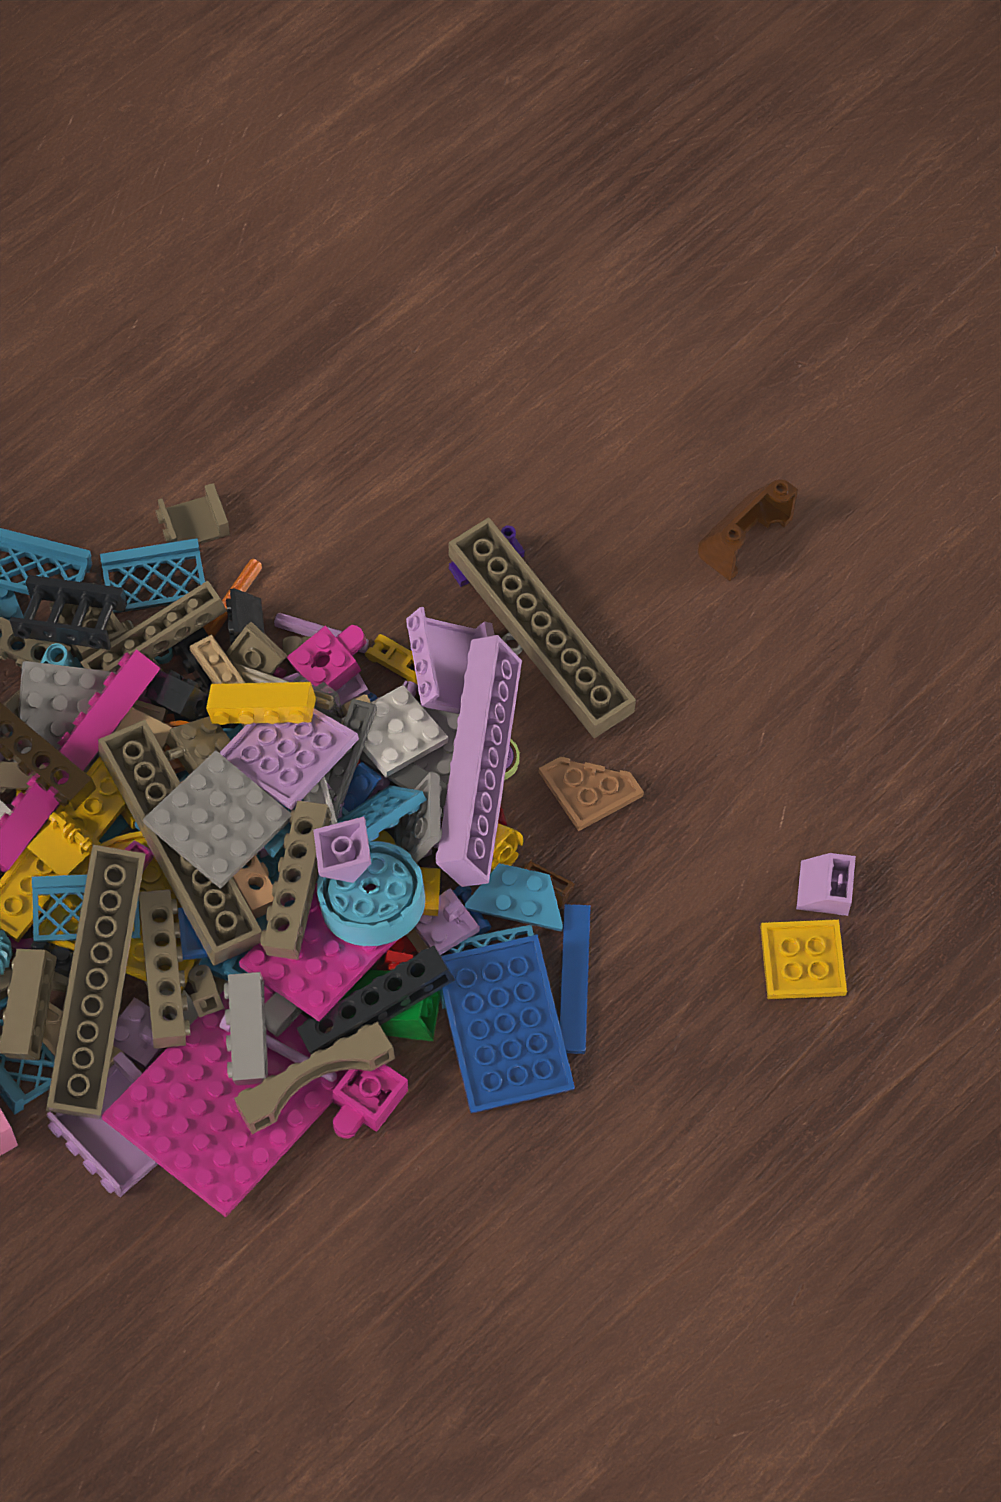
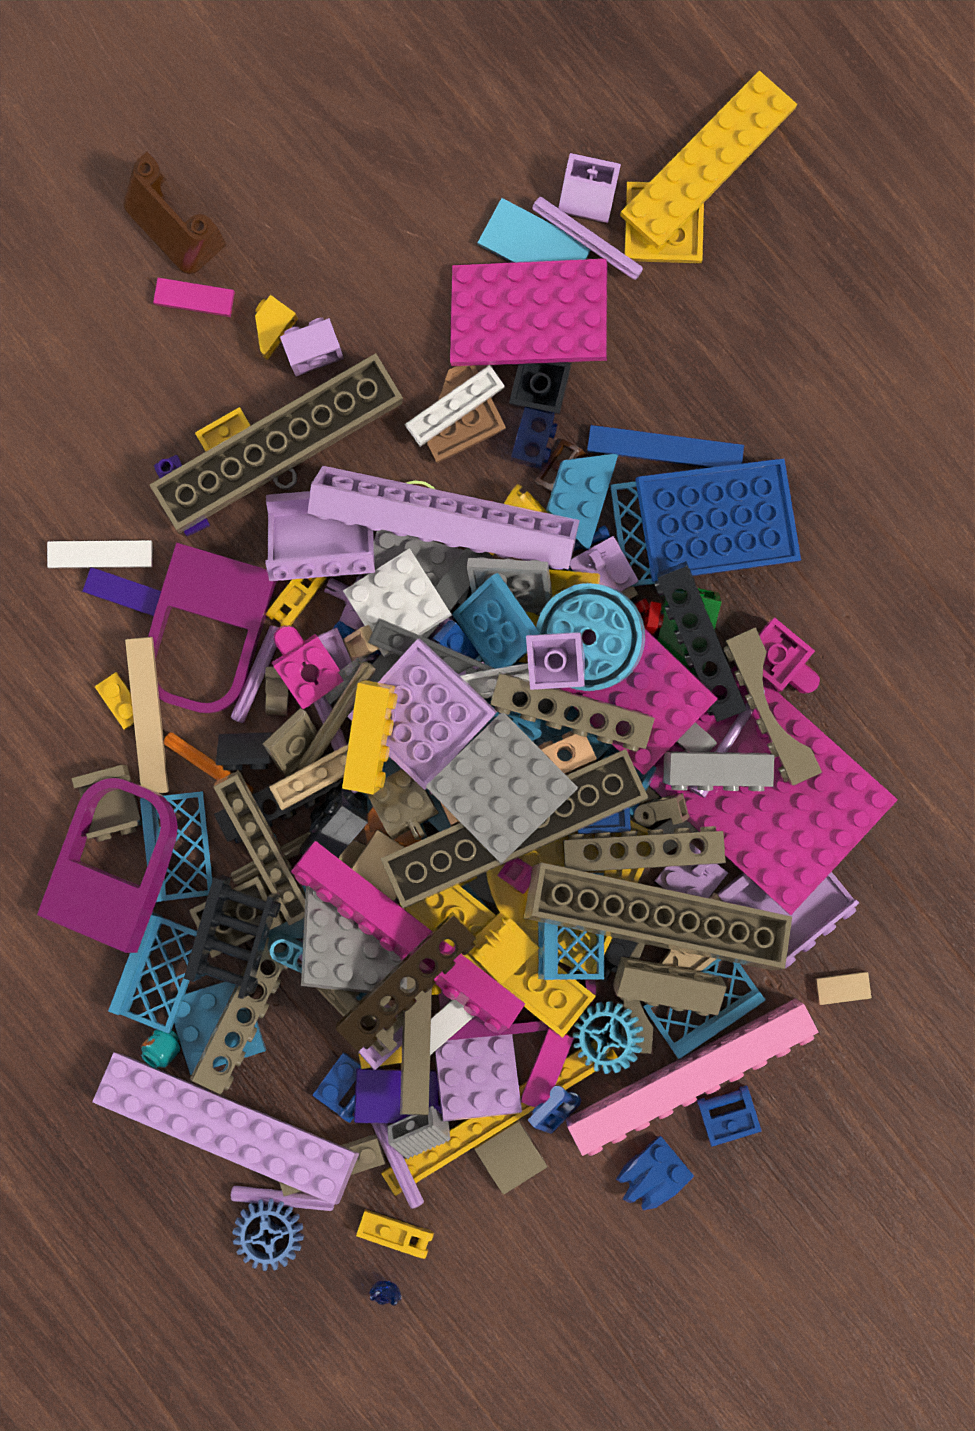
camera: 85 degrees left, 25 degrees up
(28, 1189) = (843, 988): none -> tan tile
(102, 507) = (98, 901): none -> magenta window
(275, 541) = (147, 714): none -> tan tile
(289, 524) = (117, 698): none -> yellow plate
(391, 519) = (122, 591): none -> dark purple tile
(399, 584) = (218, 591): none -> magenta window
(425, 497) = (99, 554): none -> white tile
(554, 585) = (222, 429): none -> yellow plate
(572, 846) = (527, 437): none -> clear blue brick
(595, 778) = (454, 405): none -> white tile
(624, 849) = (541, 386): none -> black slope
(637, 649) = (311, 346): none -> lavender brick
(655, 619) = (272, 321): none -> yellow slope
(675, 556) = (194, 297): none -> dark pink tile
(694, 836) = (529, 312): none -> dark pink plate
(764, 844) = (527, 238): none -> medium azure tile
(776, 887) = (587, 238): none -> lavender axle
(872, 994) = (708, 160): none -> yellow plate

